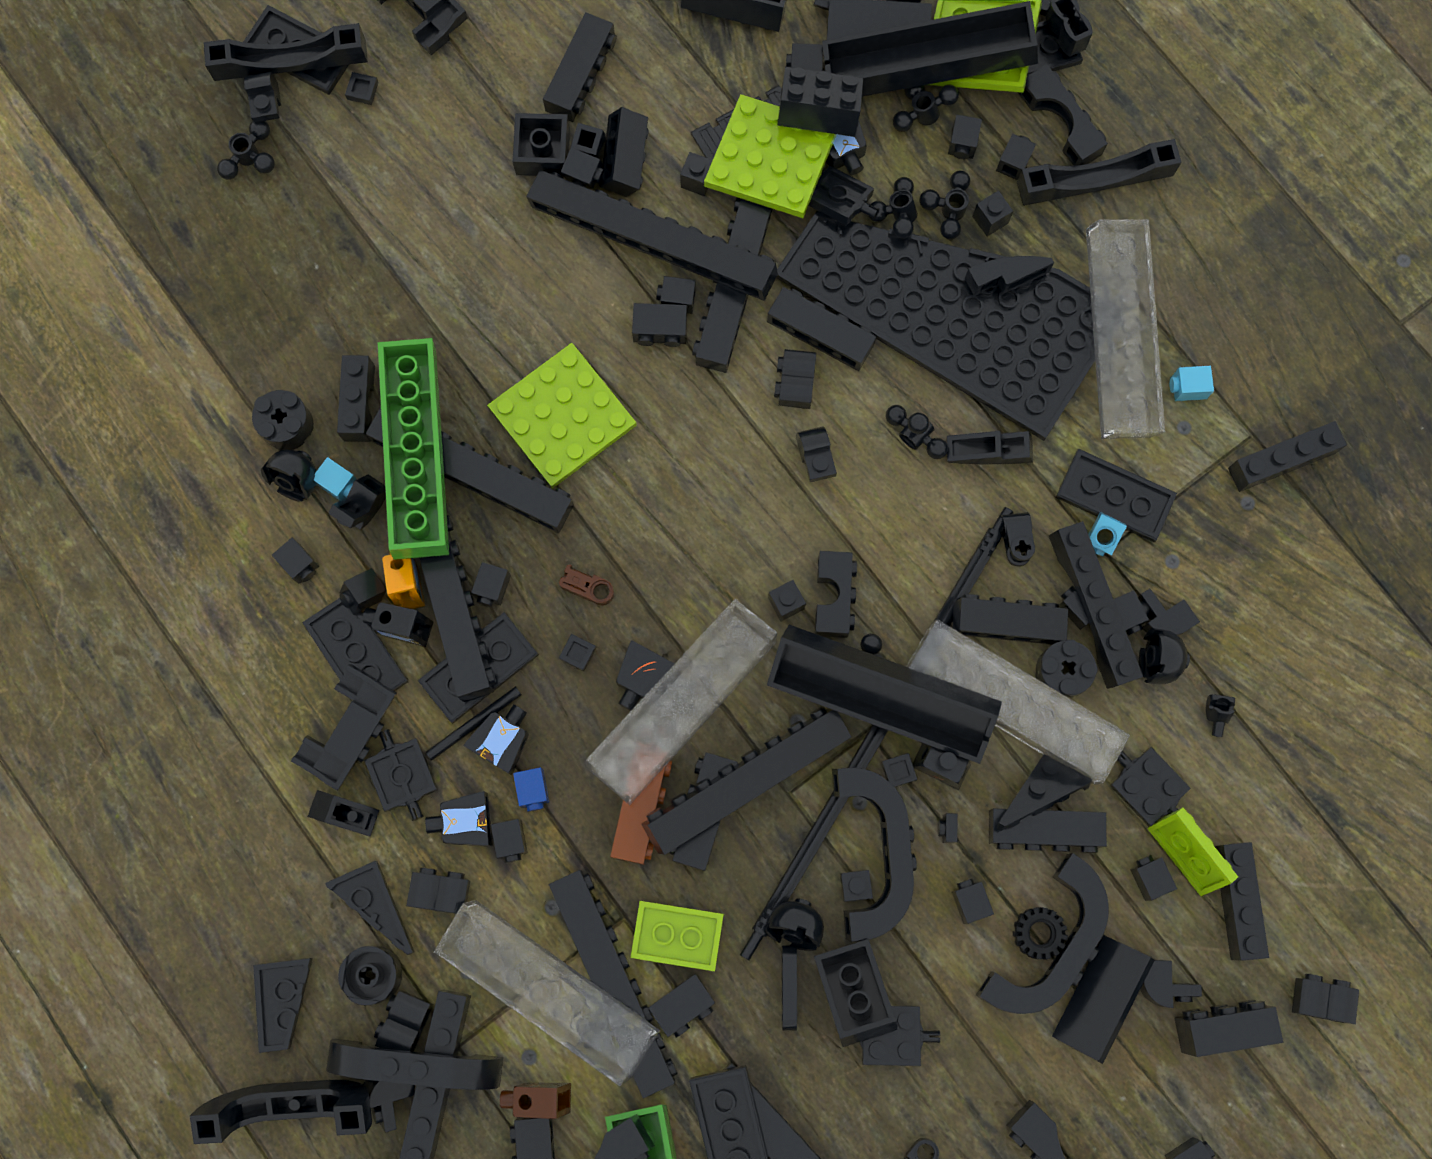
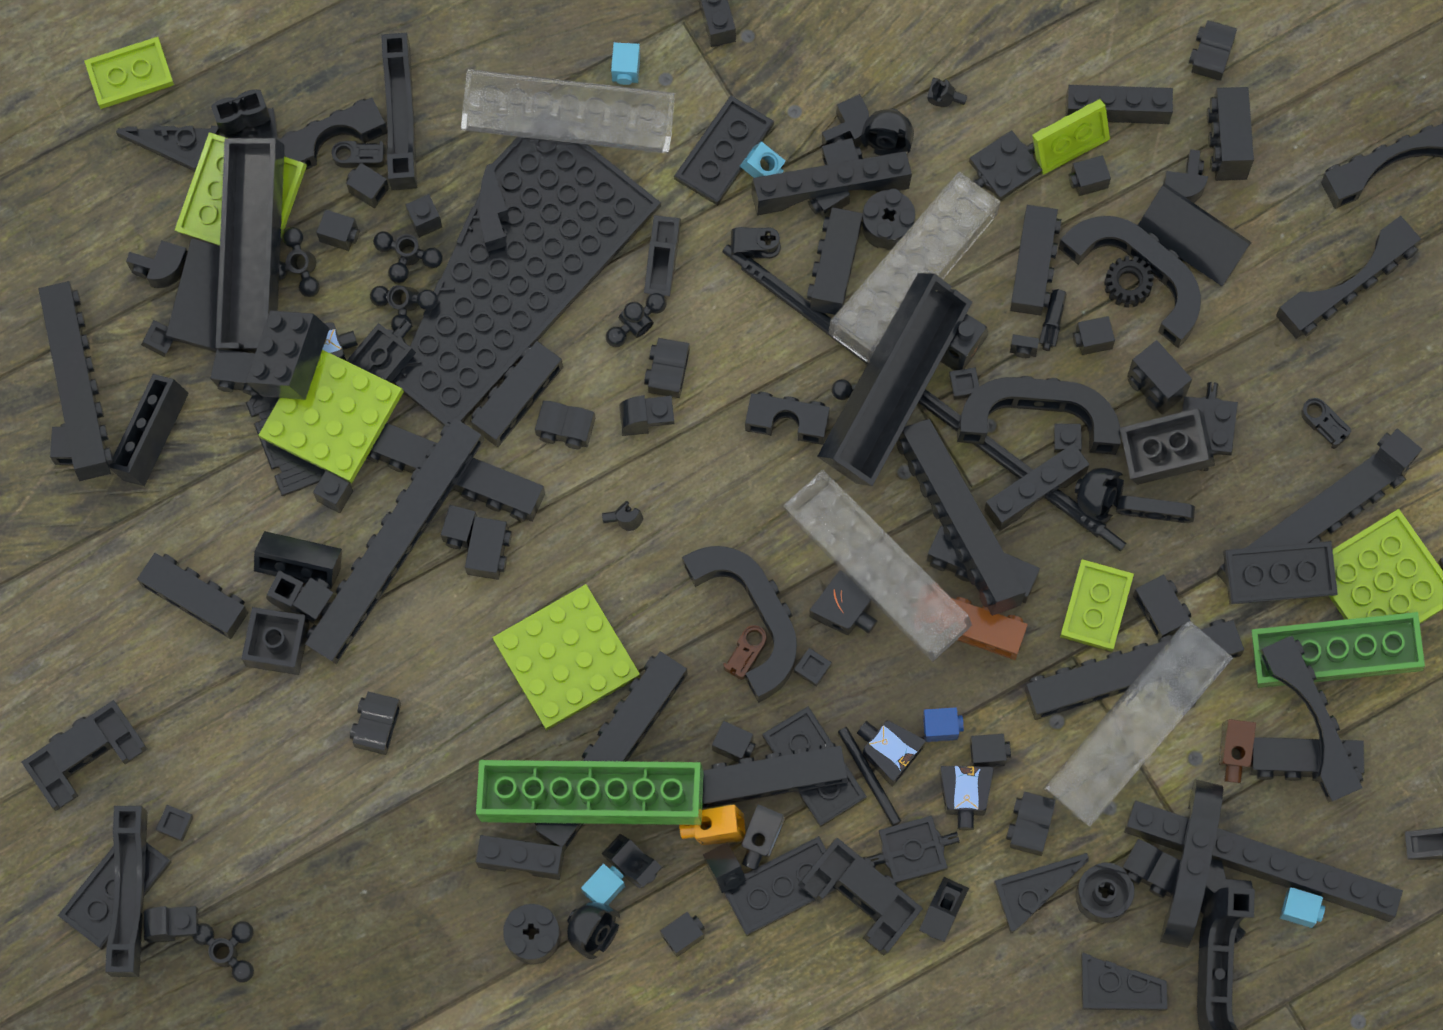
camera: 80 degrees left, 5 degrees down
(474, 249) = (376, 722): none -> black brick
(629, 604) = (734, 564): none -> black arch
(709, 449) = (627, 520): none -> black piece
(786, 600) = (788, 462): black brick -> none
(795, 858) = (1021, 495): none -> black arch
(870, 469) = (668, 367): none -> black brick
(932, 975) = (1158, 378): none -> black brick
(985, 856) = (1053, 318): none -> black piece
(1045, 786) = (995, 252): black wing -> none
(1048, 148) = (366, 153): none -> black piece

